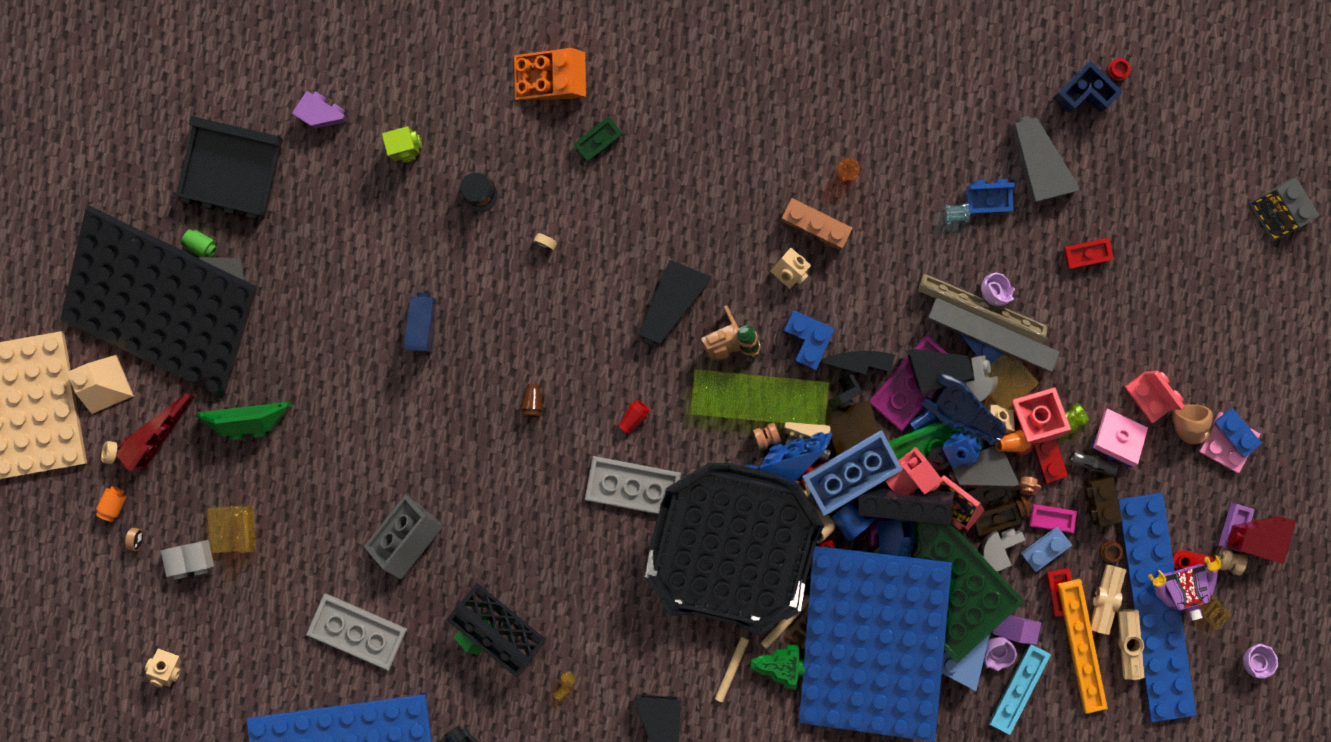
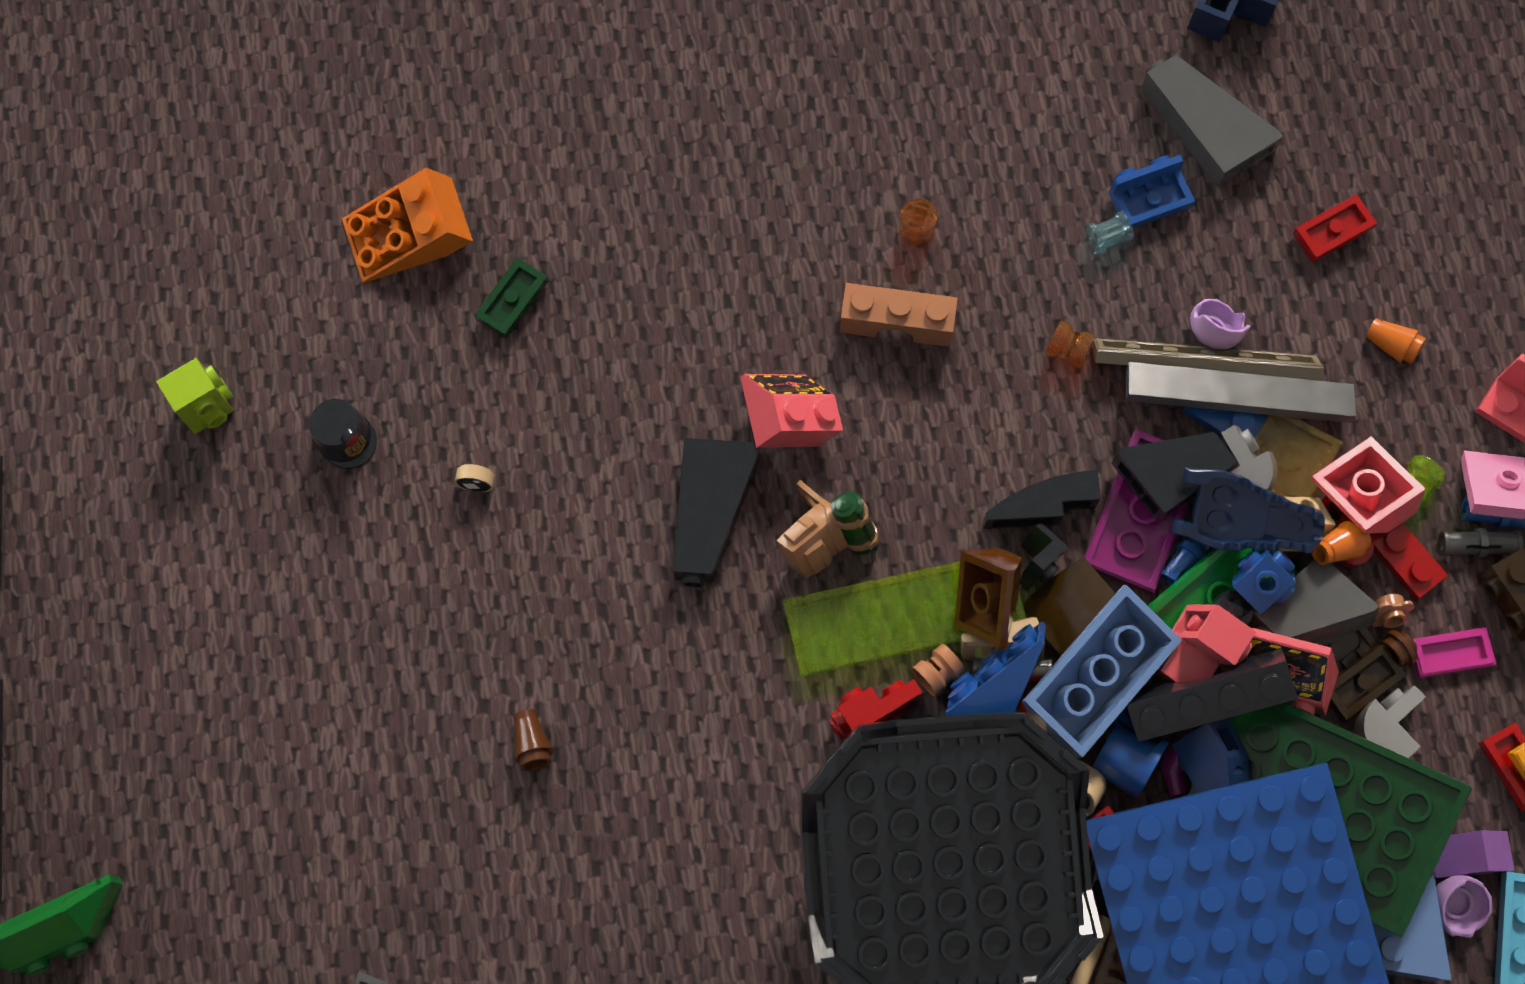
camera: 15 degrees left, 15 degrees down
(317, 113) = (48, 395): medium lavender slope -> none
(420, 323) = (305, 673): dark blue slope -> none
(628, 484) = (733, 829): light grey tile -> none
(634, 416) = (708, 710): red cone -> none
(716, 448) = (866, 707): none -> red plate
(734, 261) = (790, 410): none -> coral slope
(791, 268) = (883, 393): tan brick -> none
(807, 407) = (988, 594): none -> reddish brown slope
(814, 337) = (955, 483): blue brick -> none
(908, 273) = (1070, 344): none -> clear orange wheel
(1046, 549) = (1464, 704): medium blue plate -> none
(1096, 333) = (1396, 340): none -> orange cone

